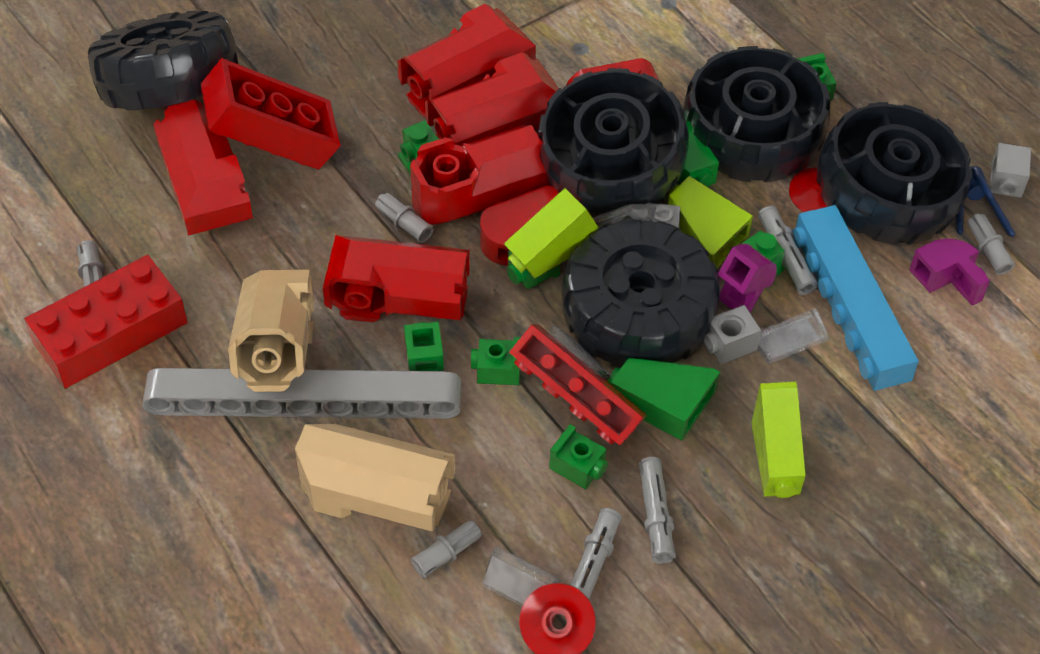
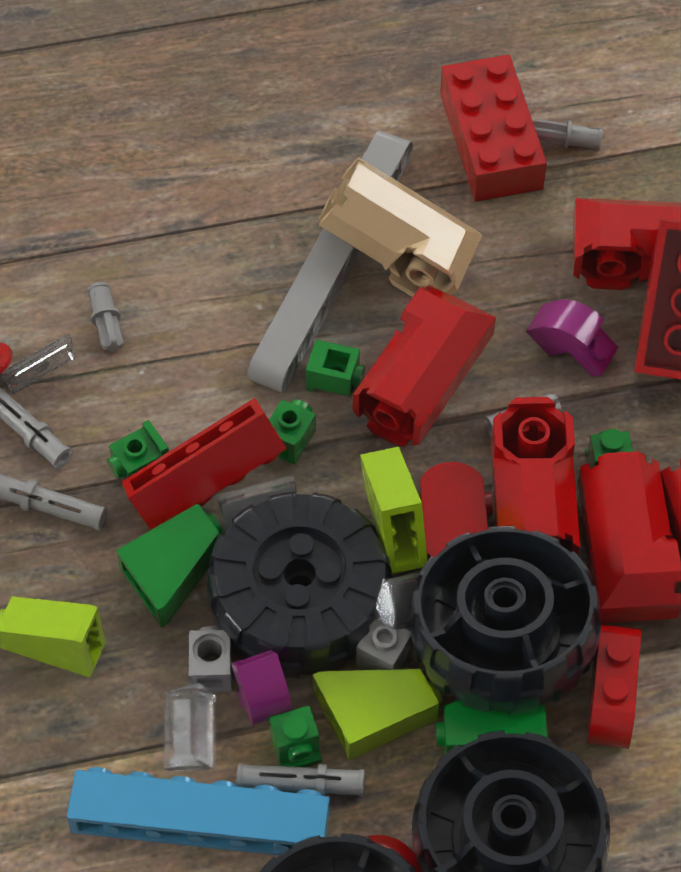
camera: 115 degrees right, 5 degrees up
(315, 200) = (574, 329): none -> magenta brick
(373, 475) = (197, 271): tan brick -> none

